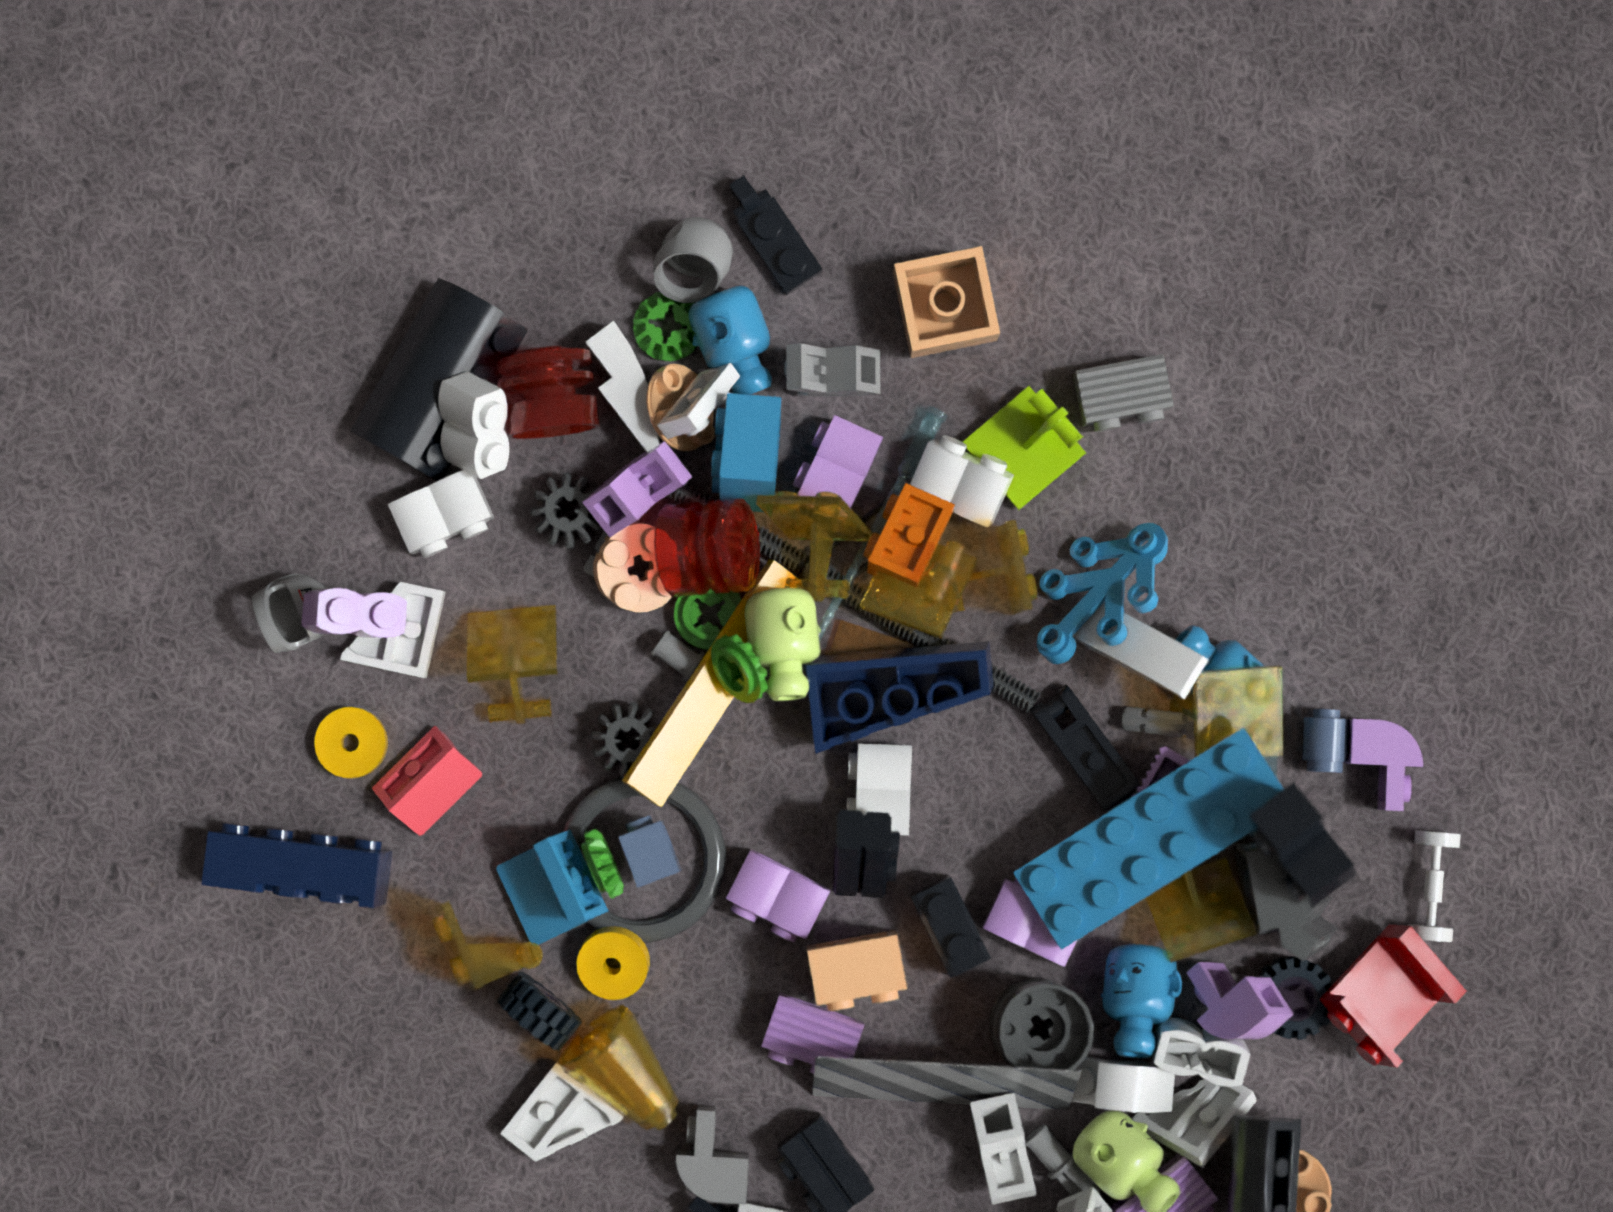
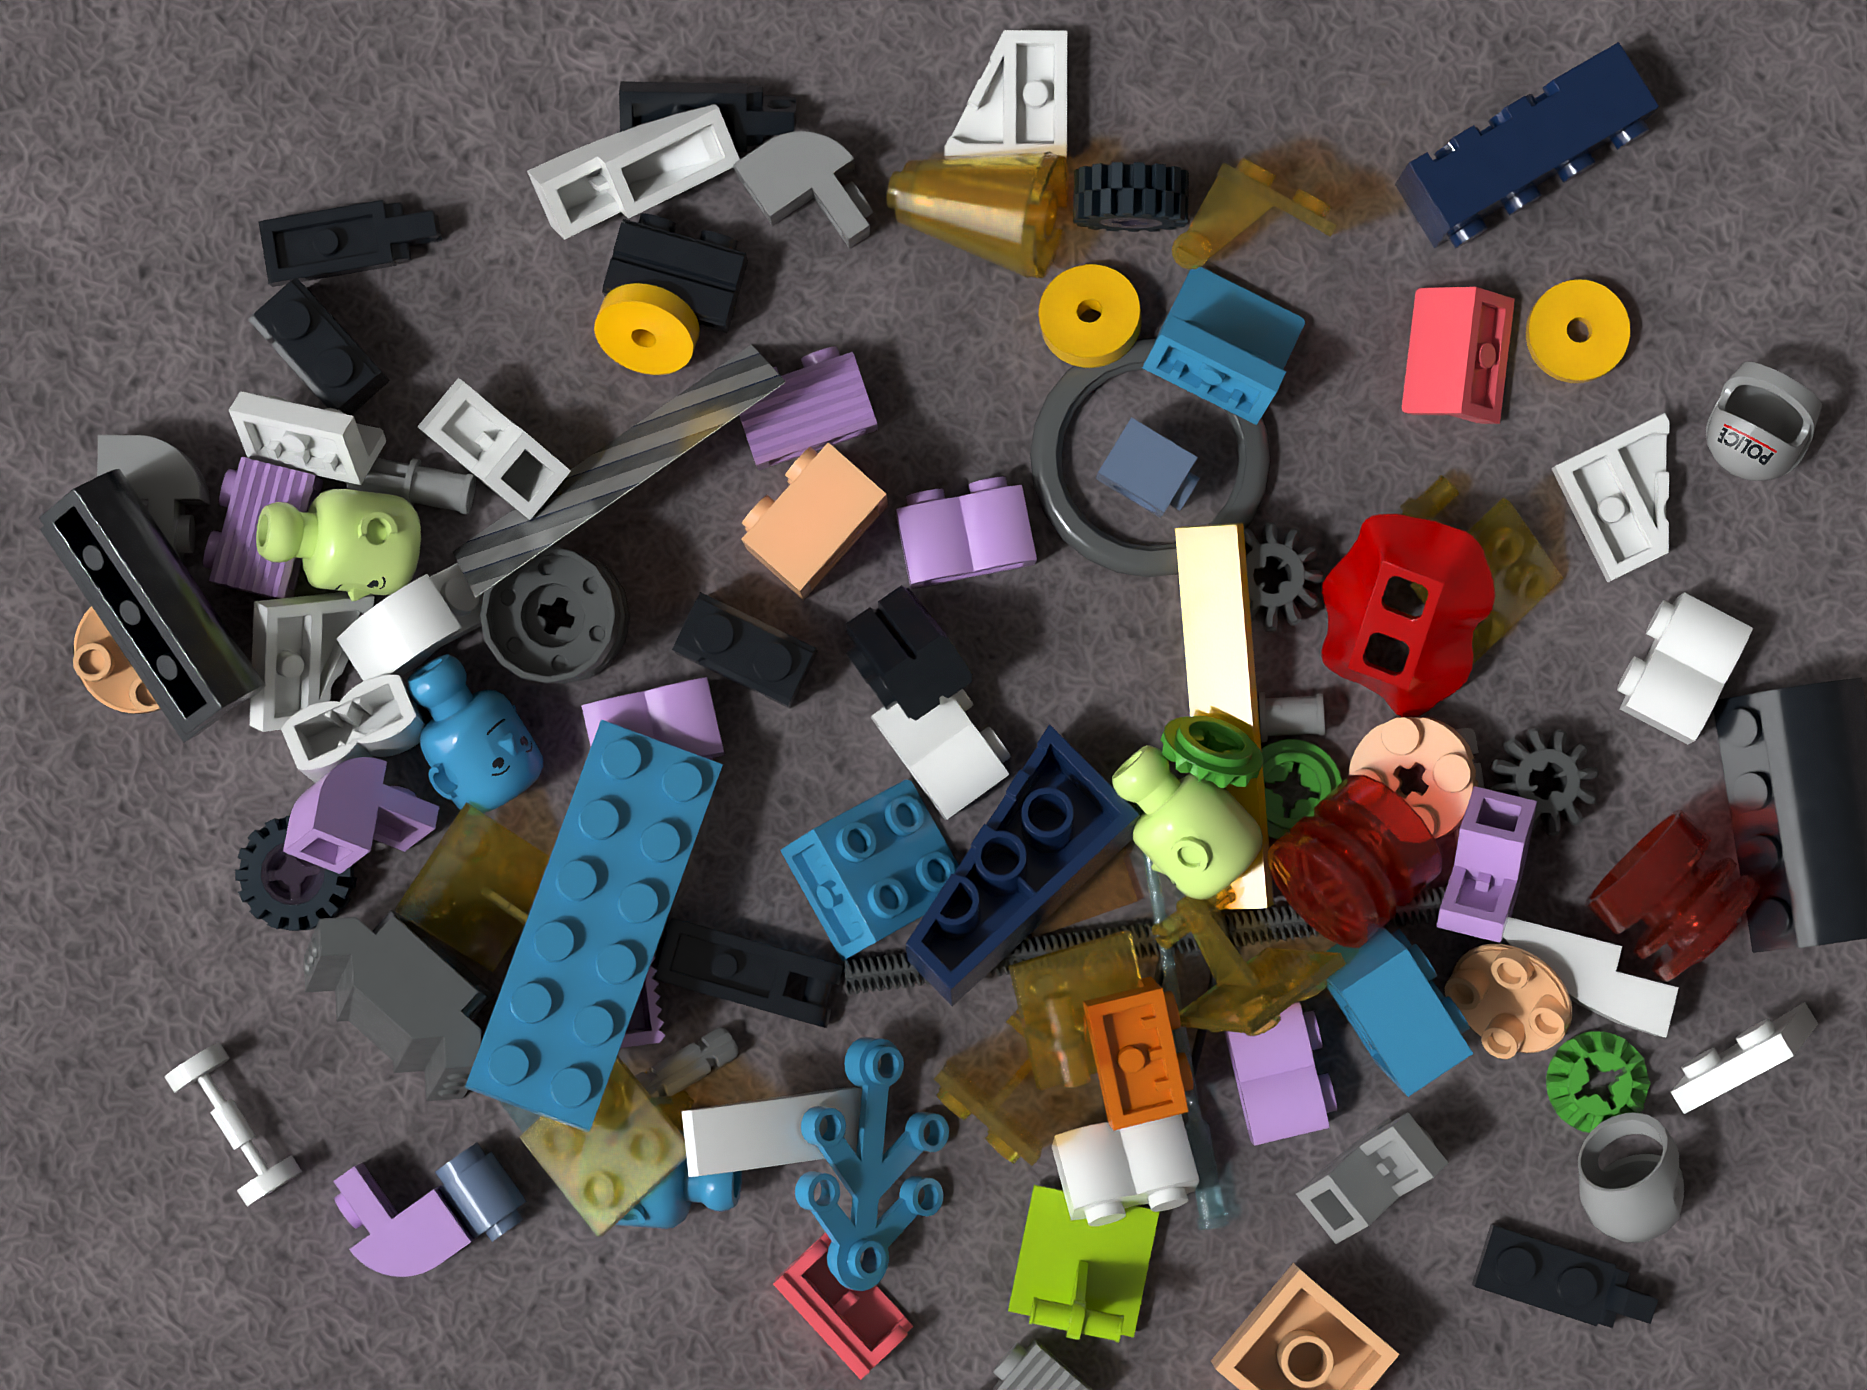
camera: 140 degrees right, 0 degrees up
(354, 613) = (1700, 469): brick -> none
(473, 425) = (1729, 792): white brick -> none
(565, 630) = (1439, 640): none -> red piece
(573, 274) = (1756, 1052): none -> white wing
(602, 864) = (1191, 413): bright green gear -> none
(698, 401) = (1496, 1027): white plate -> none
(733, 331) = (1517, 1129): dark azure piece -> none
(865, 1149) = (647, 329): none -> yellow piece
(972, 751) = (872, 868): none -> dark azure bracket
(1177, 511) = (853, 1323): none -> coral hinge
(1300, 846) = (421, 1044): black brick -> none
(1389, 993) = (191, 961): panel -> none

